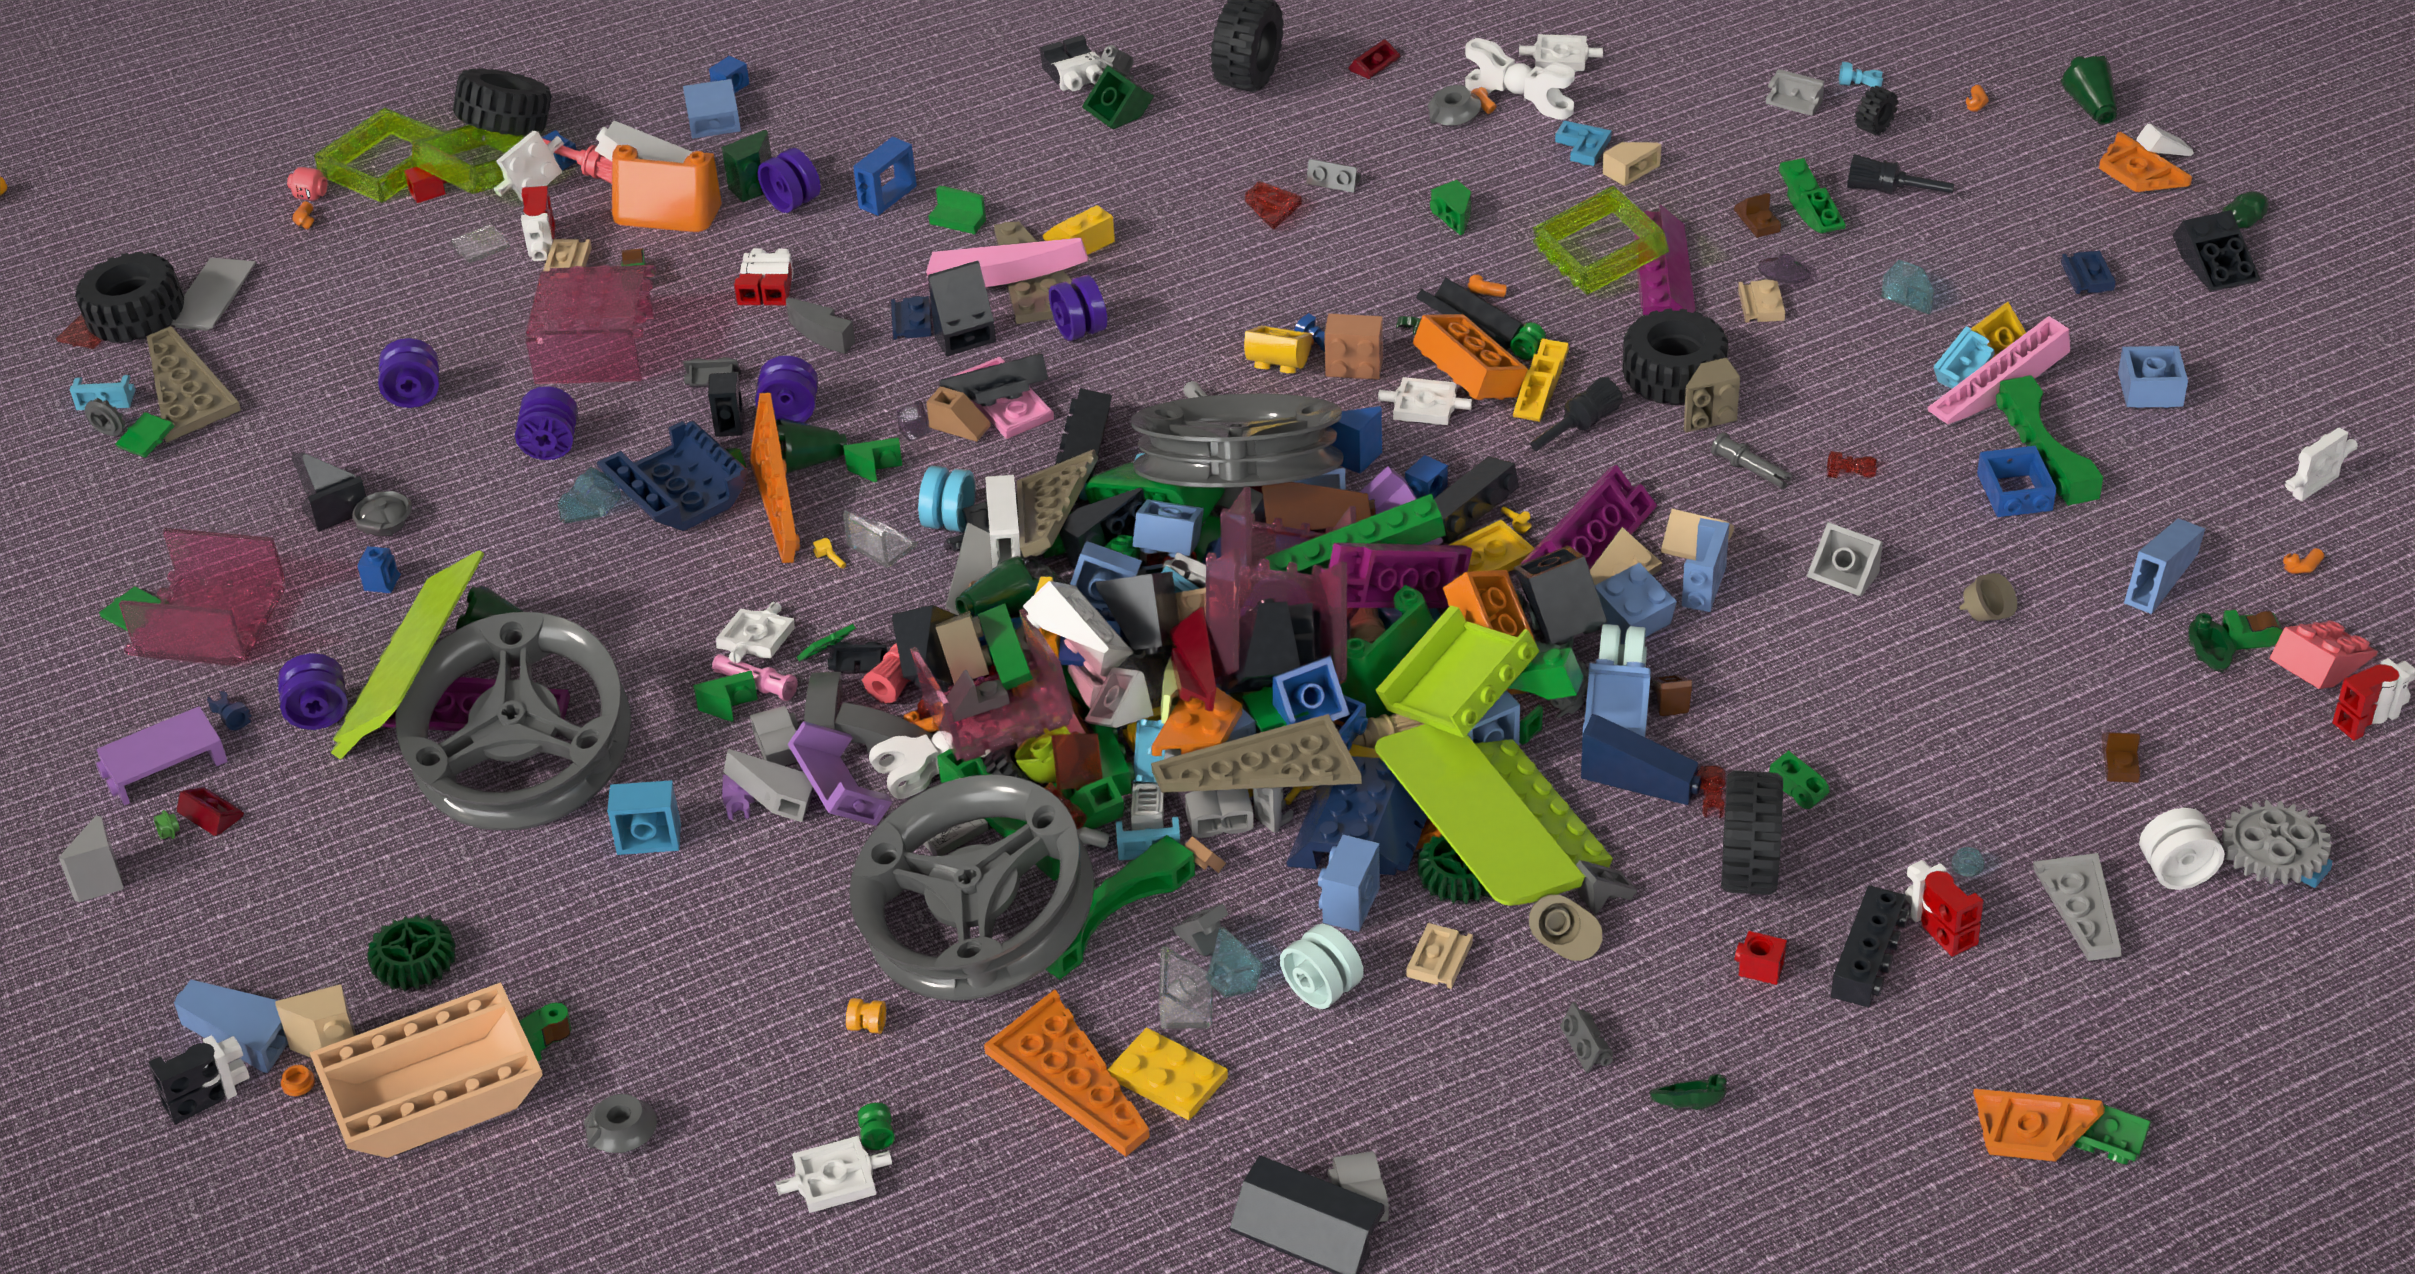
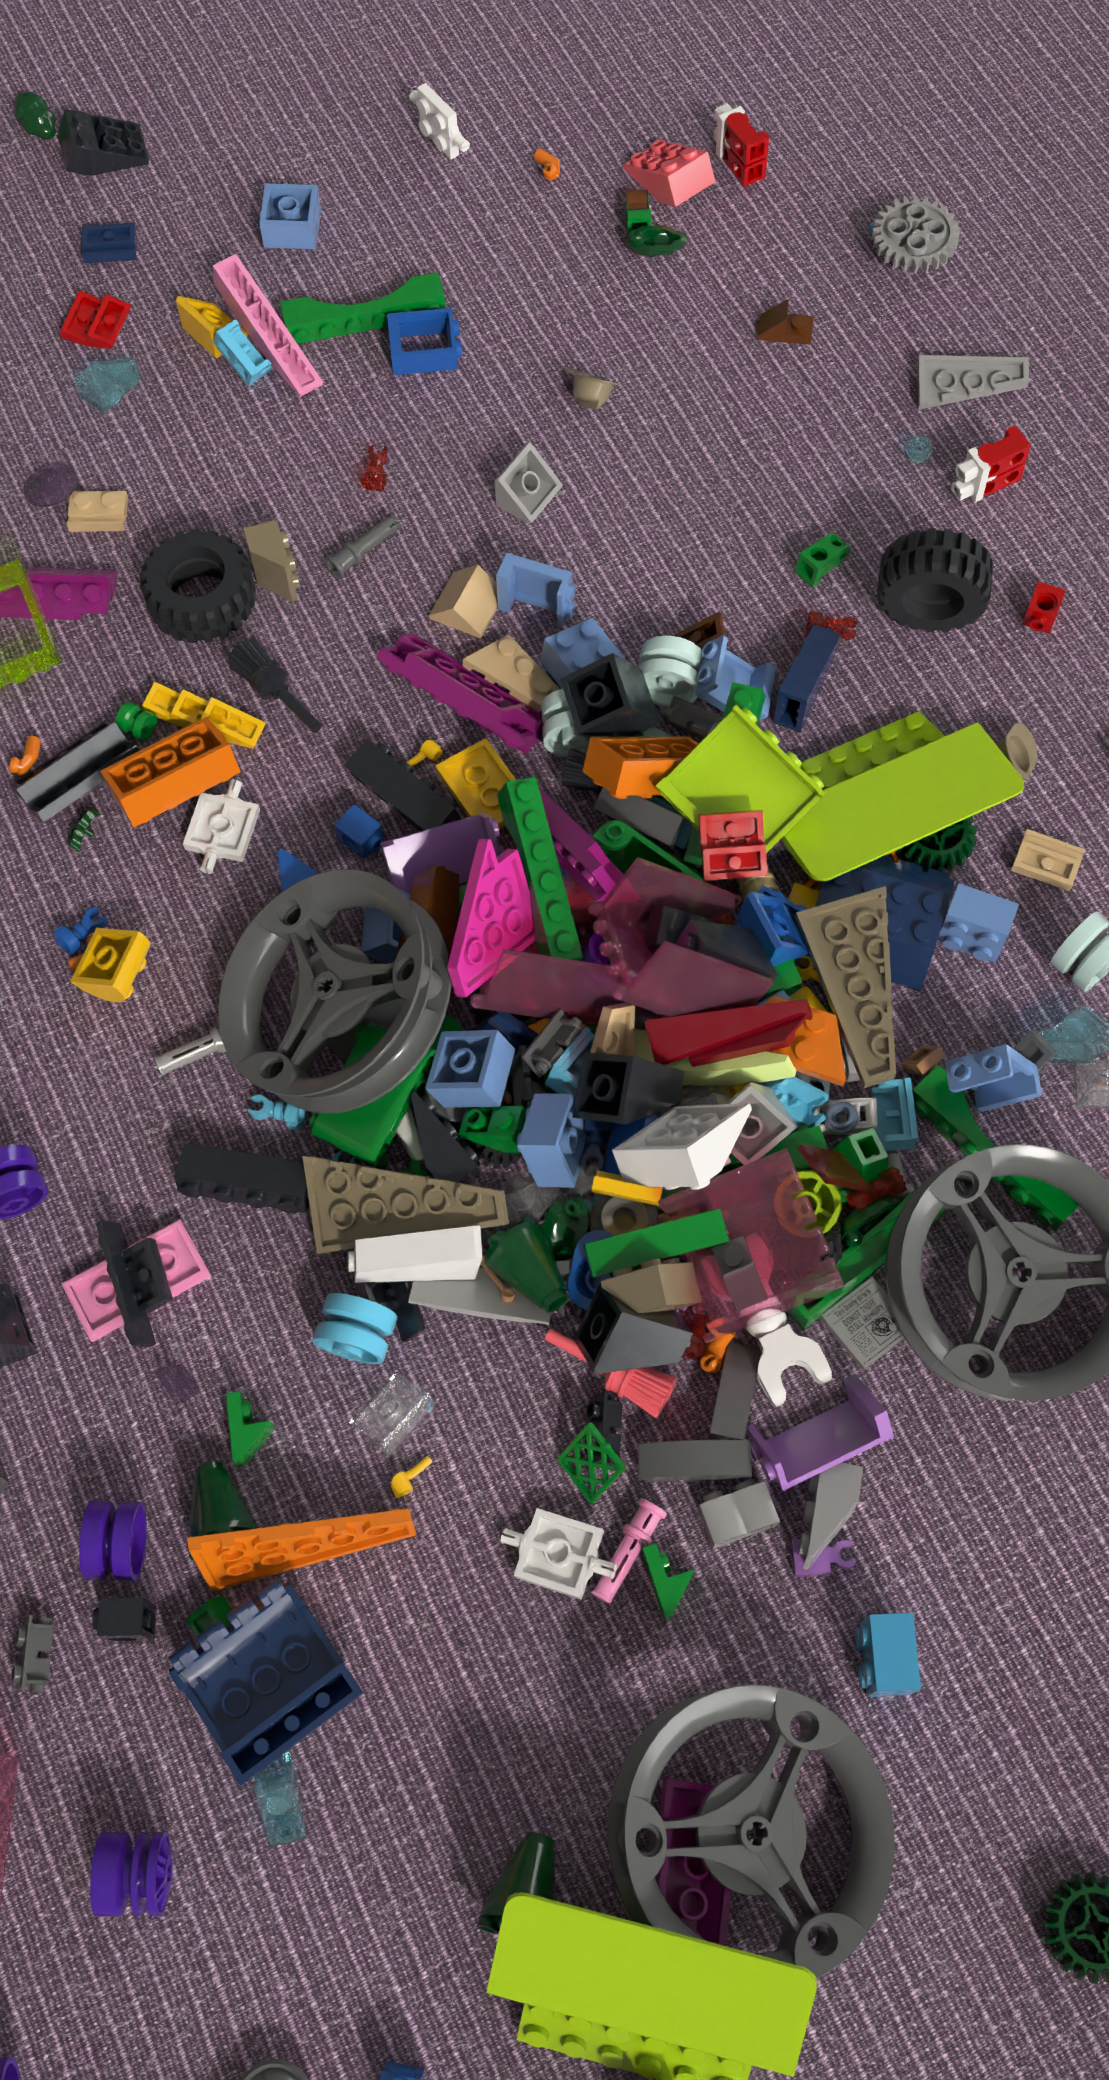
camera: 90 degrees left, 25 degrees up
(956, 414) = (182, 1327): medium nougat slope -> none
(1139, 789) = (838, 1109): none -> sand blue plate
(1176, 907) = (996, 1076): none -> medium blue panel
(1298, 502) = (492, 917): none -> dark pink wing
(1353, 346) = (133, 884): nougat brick -> none
(1398, 668) = (732, 845): none -> slope
(1601, 884) = (961, 713): dark grey slope -> none
(1869, 946) = (1026, 529): black brick -> none
(1989, 274) = (95, 320): none -> red slope
(2162, 564) = (554, 251): medium blue slope -> none
(2181, 848) = (924, 295): white wheel -> none

